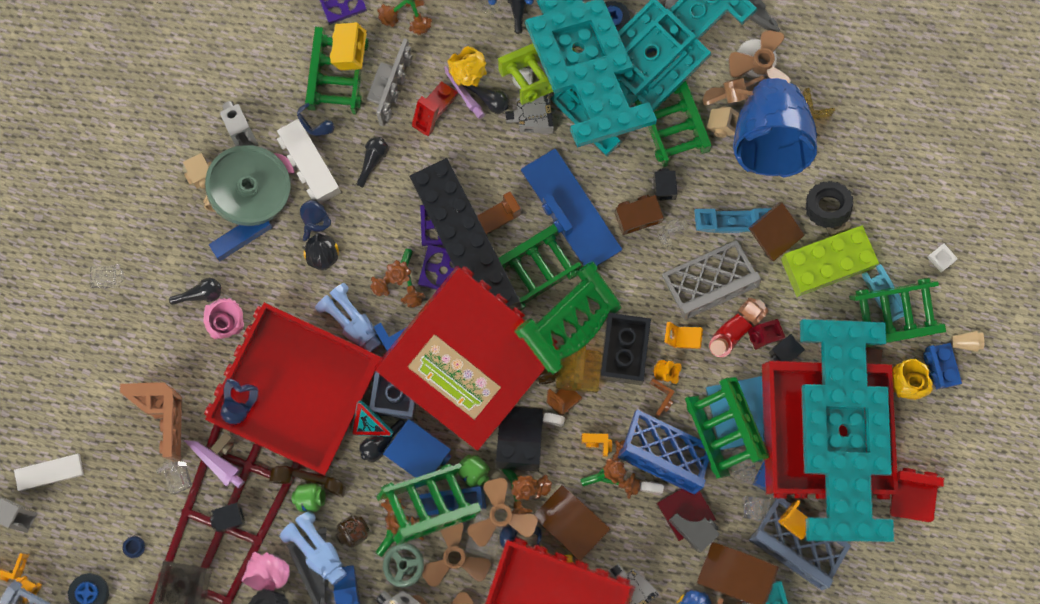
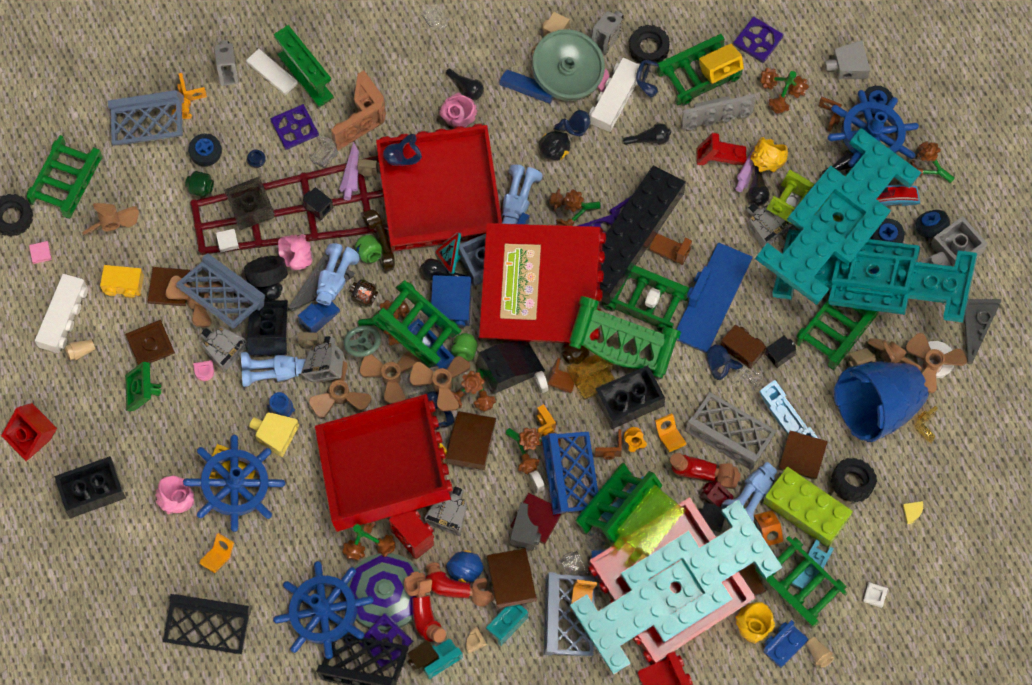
camera: 60 degrees right, 10 degrees down
(69, 438) = (303, 66): none -> green fence
(111, 469) = (297, 132): none -> dark purple piece
(277, 83) = (655, 33): none -> black tyre
(542, 264) = (652, 298): none -> white tile
(632, 244) = (719, 356): none -> dark blue piece
(774, 416) = (649, 523): none -> clear neon green tile
(783, 291) = (757, 484): none -> light blue piece
(823, 306) = (769, 522): none -> orange bracket
(885, 174) = (912, 511): none -> light yellow tile

